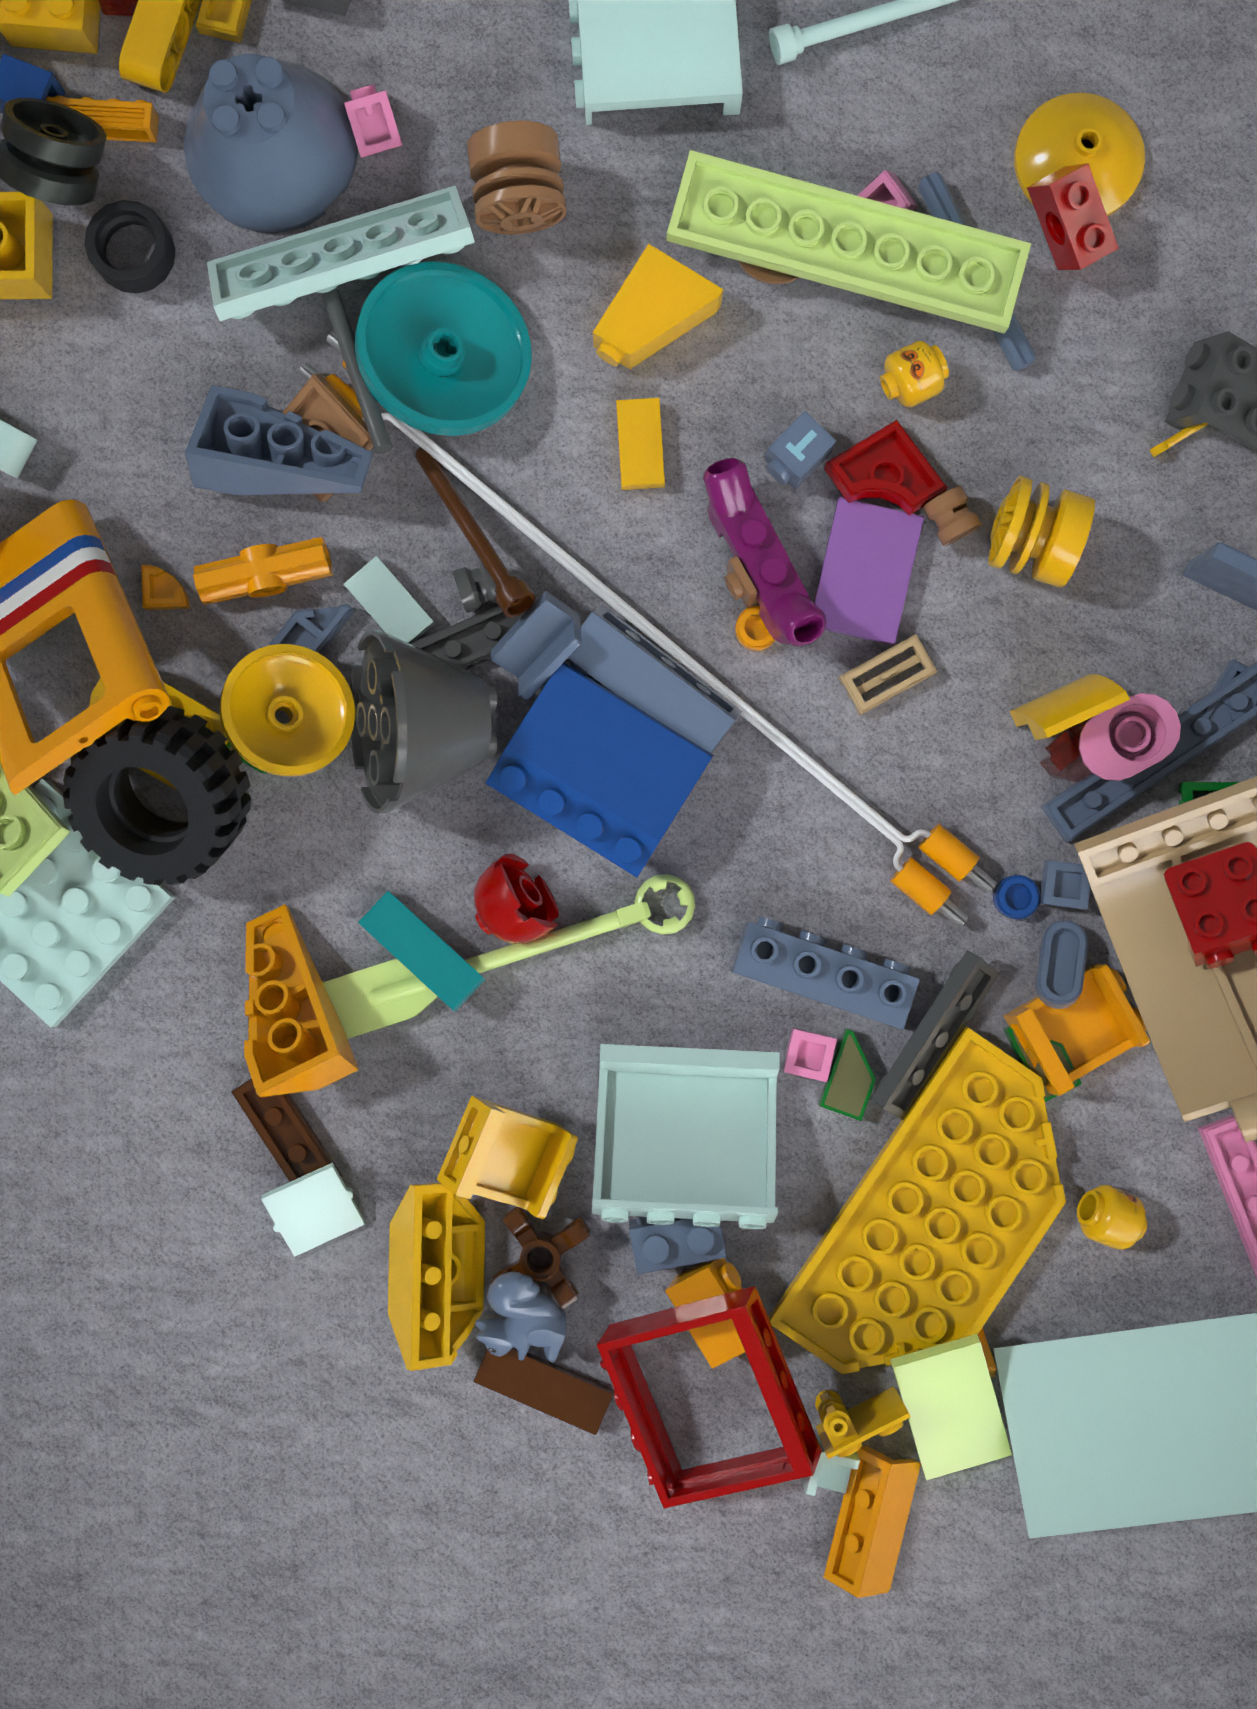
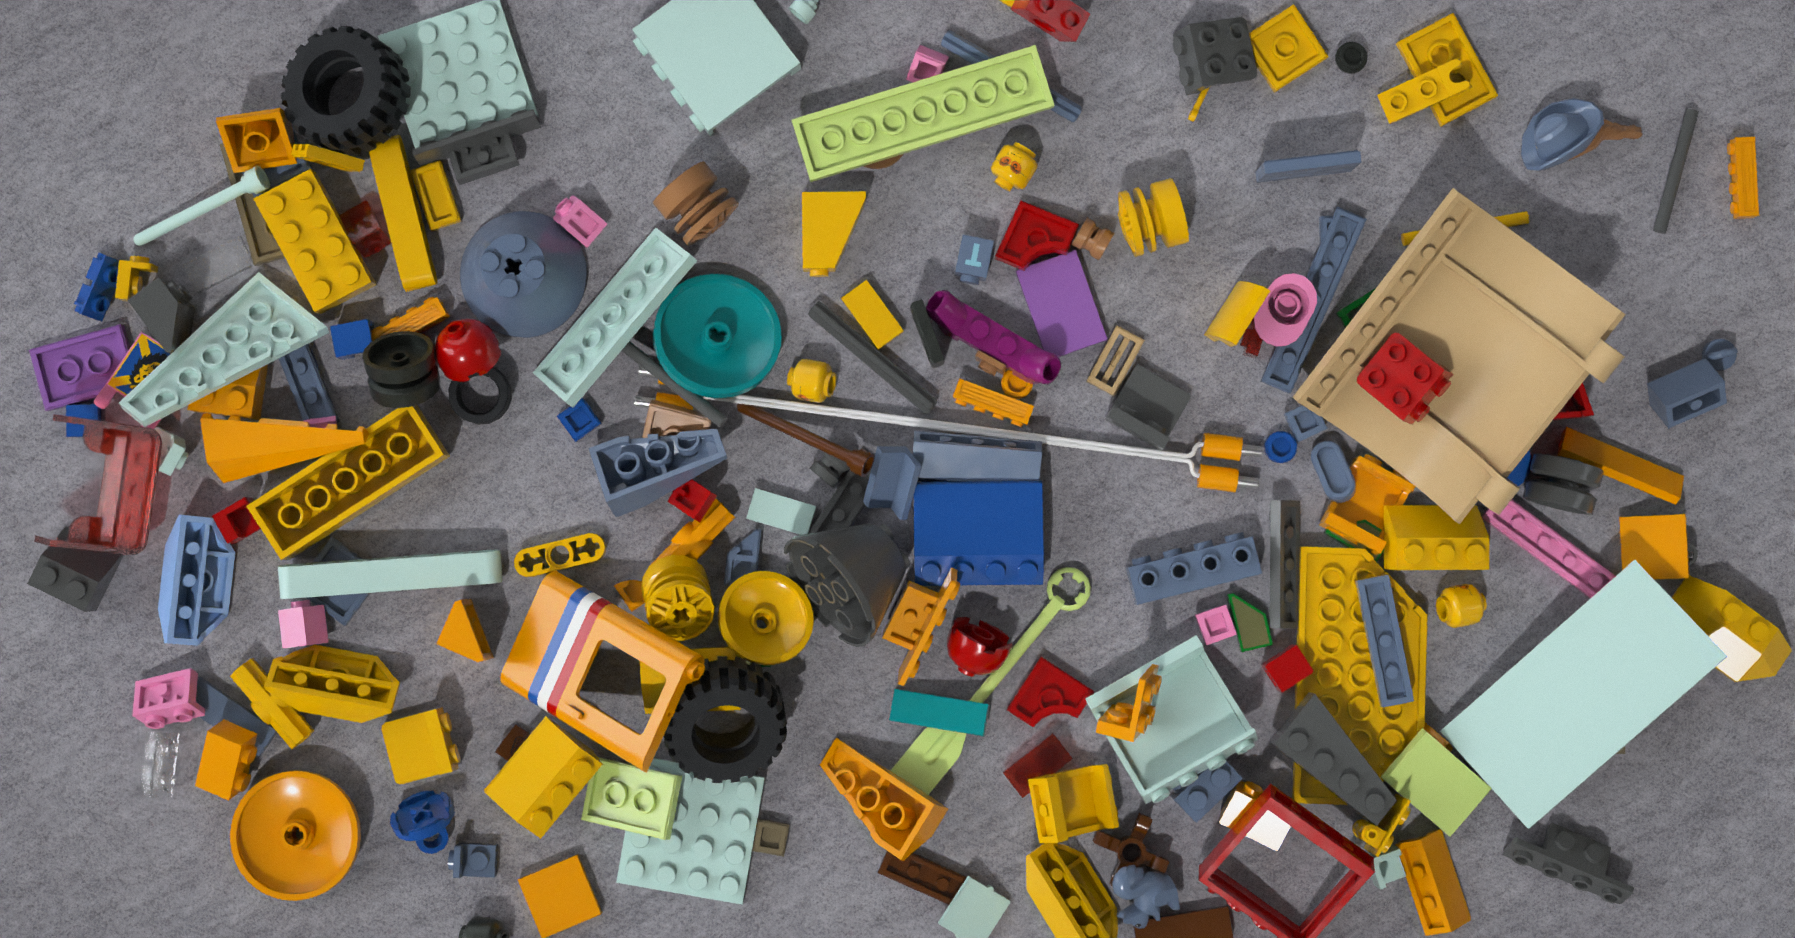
camera: 30 degrees left, 0 degrees up
(135, 971) = (771, 837): none -> dark tan tile
(136, 490) = (538, 569): none -> yellow beam
(143, 176) = (466, 348): none -> red cylinder
(198, 619) = (677, 597): none -> yellow wheel
(226, 351) = (579, 420): none -> blue tile
(292, 518) = (692, 499): none -> red bracket
(459, 821) = (915, 619): none -> light orange bracket
(501, 1082) = (1041, 760): none -> clear red plate
(521, 472) = (812, 380): none -> yellow head
(565, 1009) = (1048, 692): none -> red tile
(609, 492) = (872, 357): none -> dark grey axle
(634, 1103) = (1126, 720): none -> light orange bracket
(688, 498) = (926, 333): none -> pearl dark grey tile
(715, 631) = (994, 402): none -> light orange piece
(846, 1295) = (1326, 752): none -> dark grey wedge
(861, 1159) = (1287, 668): none -> red panel
(892, 752) = (1148, 407): none -> dark grey bracket
(997, 1202) = (1384, 641): none -> sand blue plate
(1053, 1600) = (1573, 860): none -> dark grey bracket
(1131, 1119) = (1431, 540): none -> yellow slope

